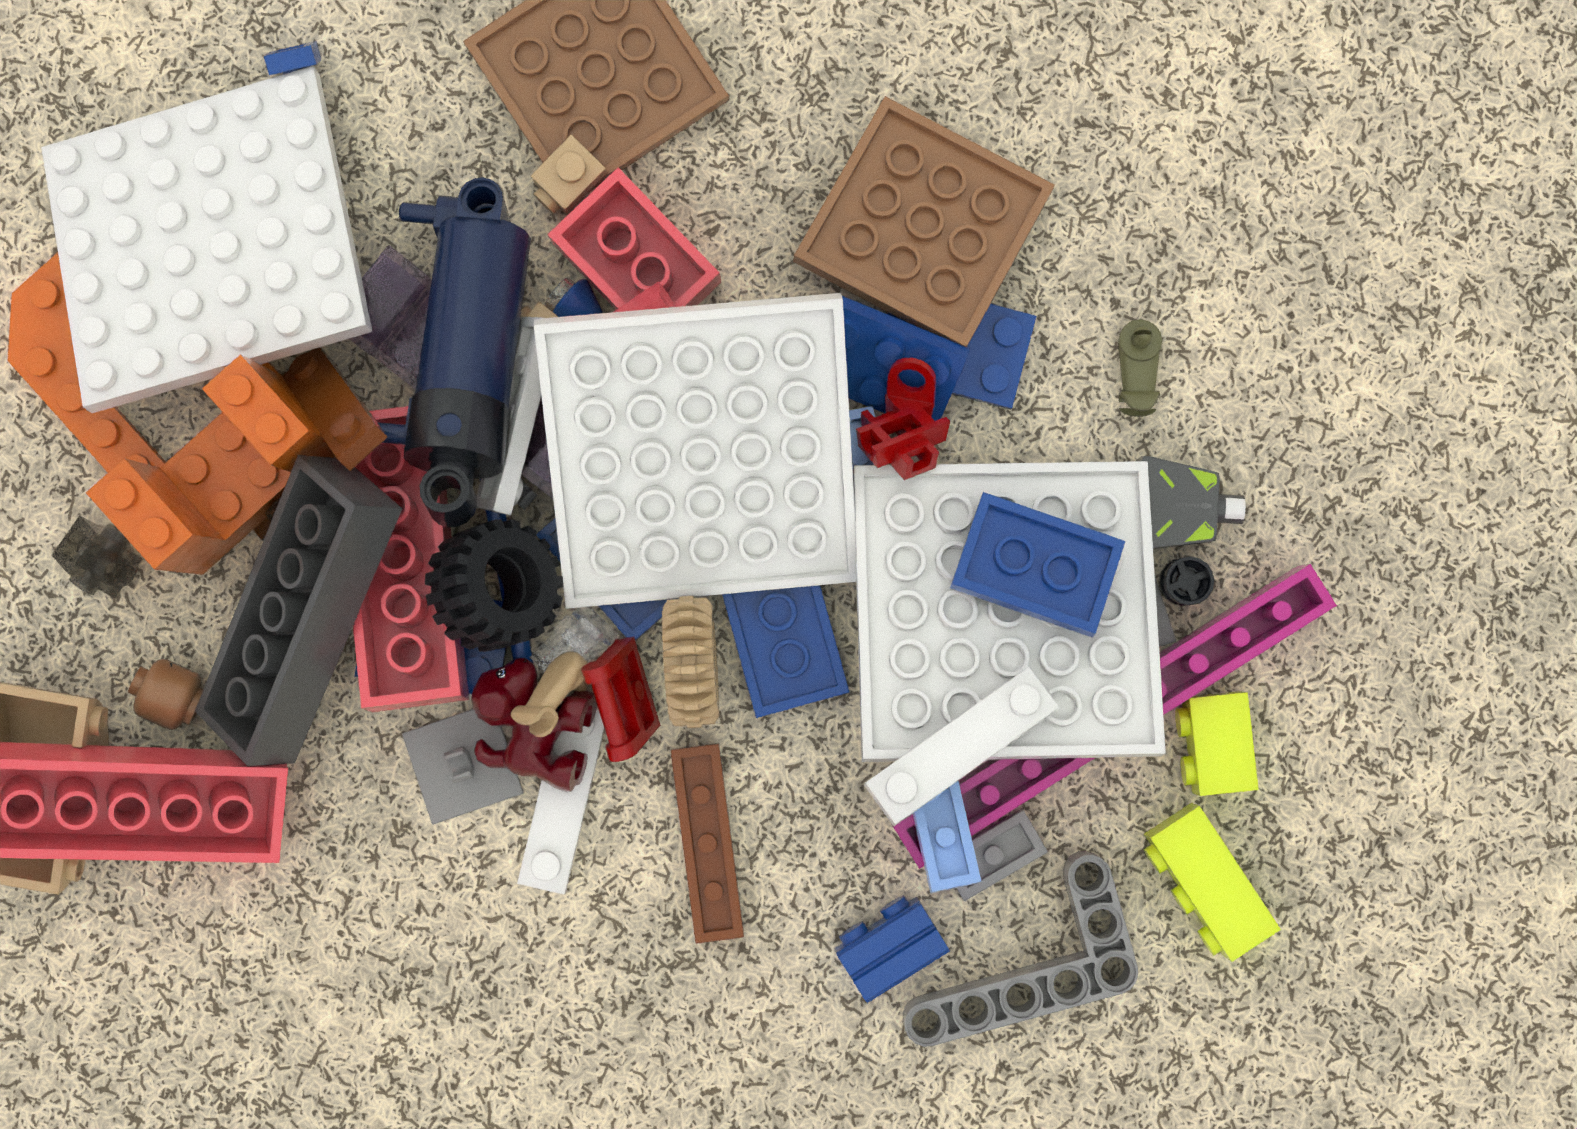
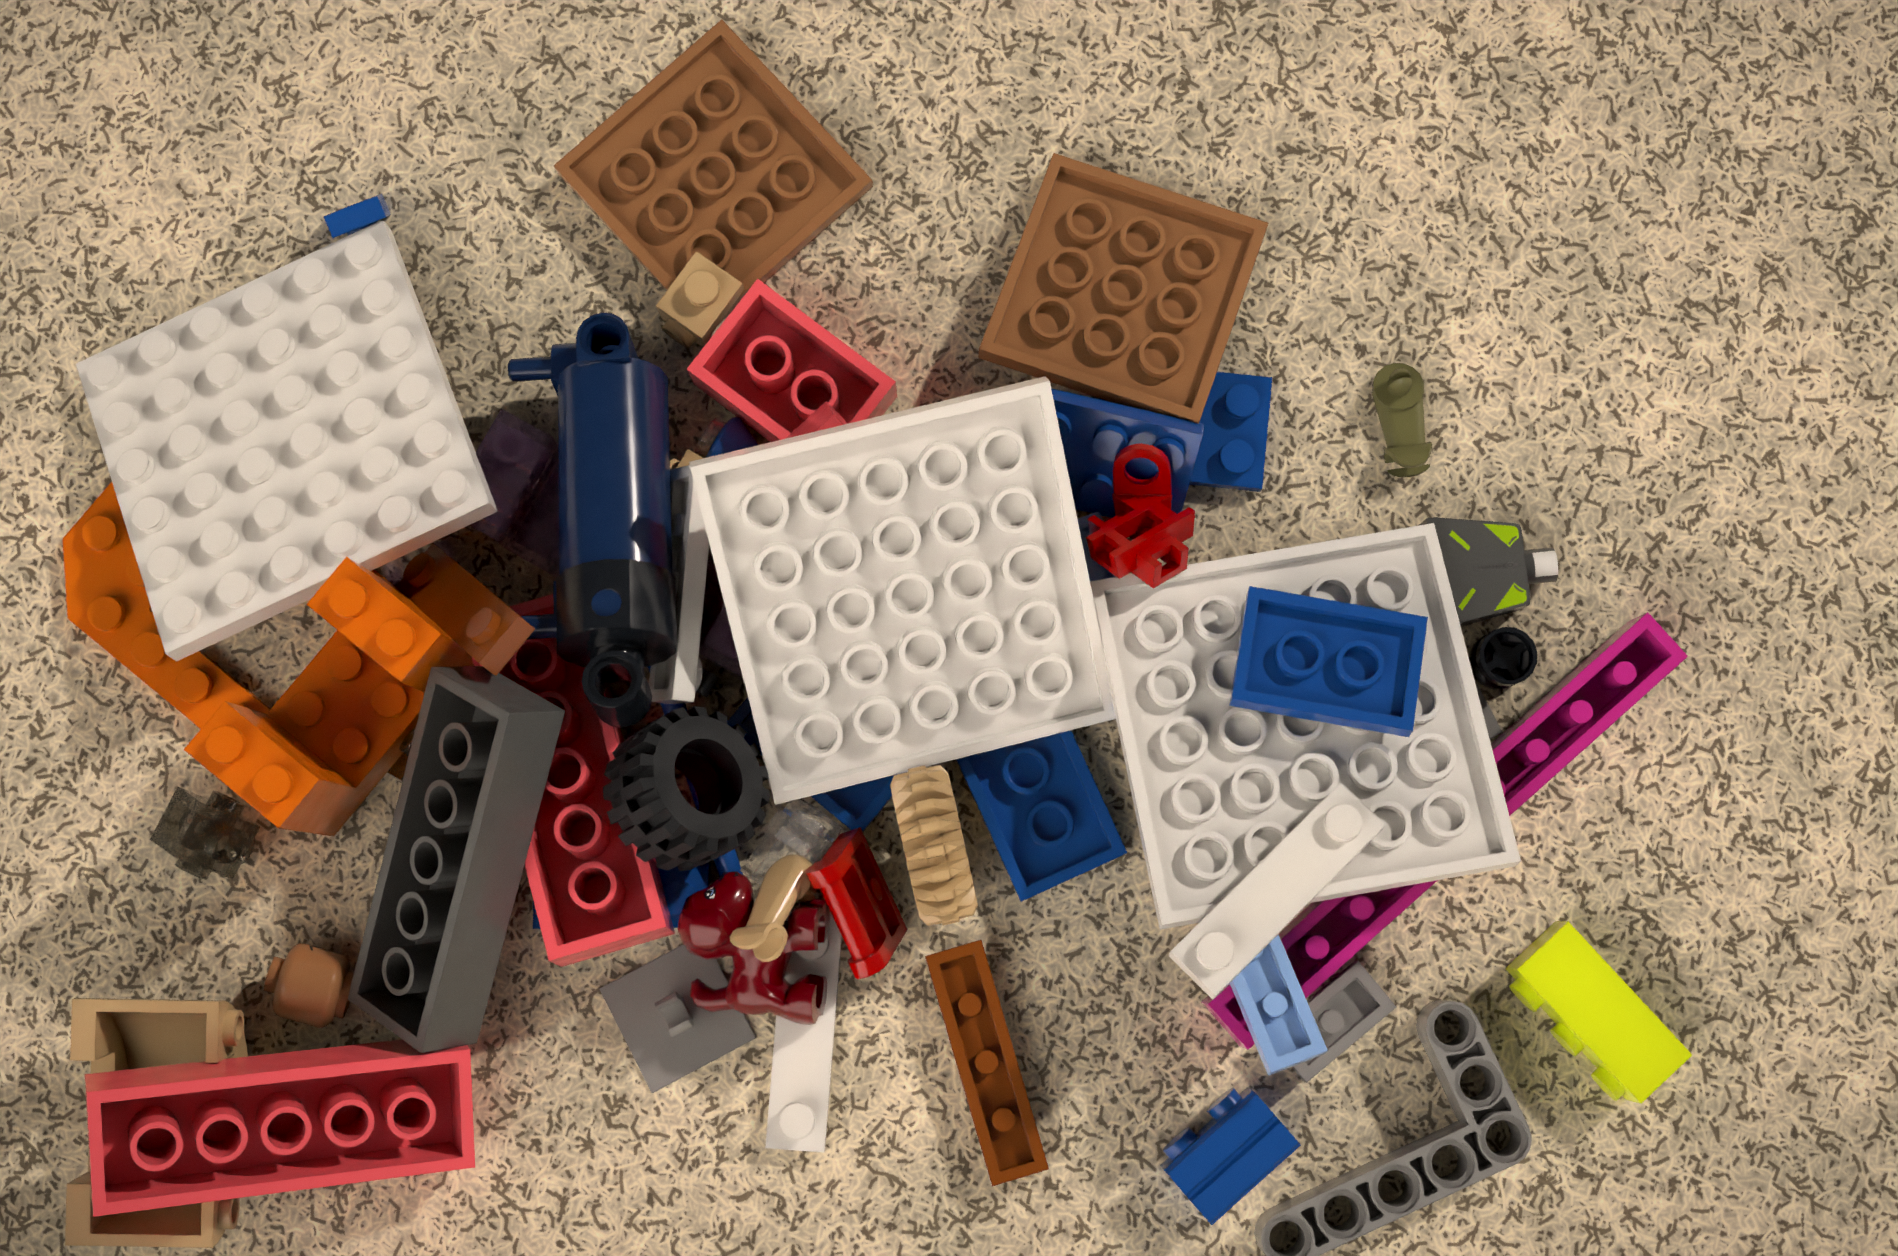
camera: 10 degrees left, 5 degrees down
(1217, 743) = (1575, 845): neon yellow brick -> none

